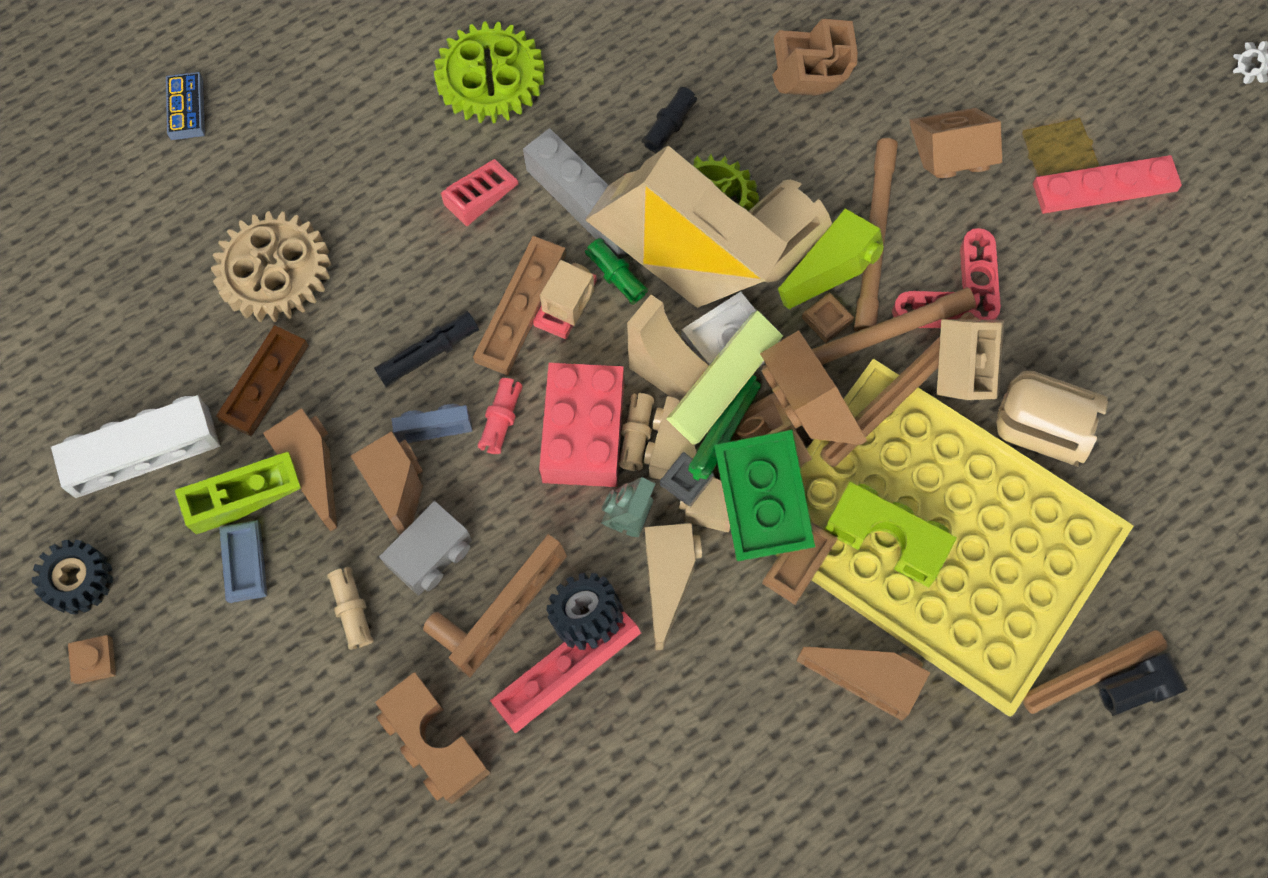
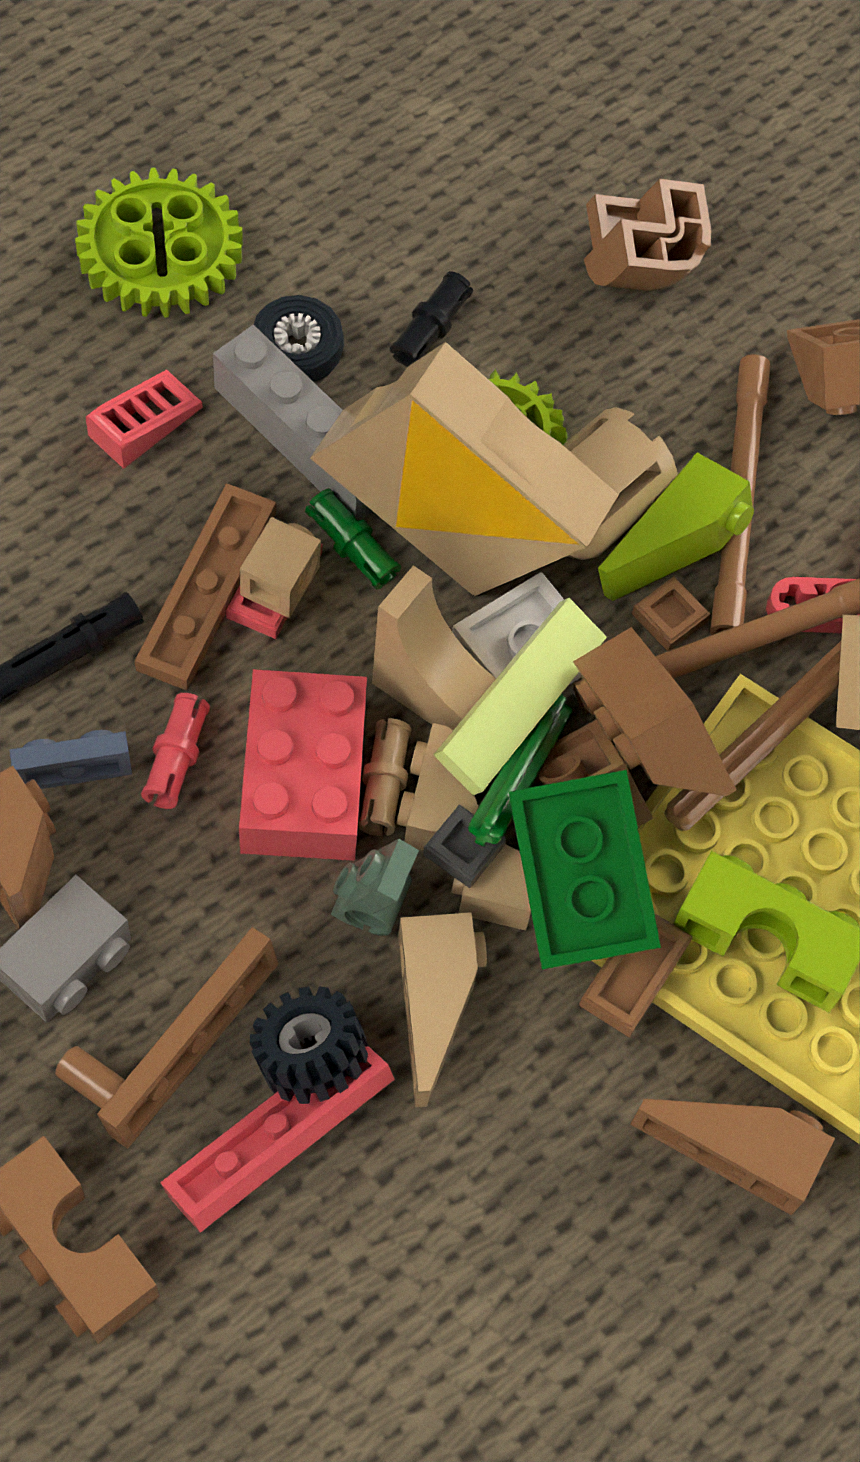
camera: 10 degrees left, 5 degrees down
(581, 121) = (304, 317): none -> black bush

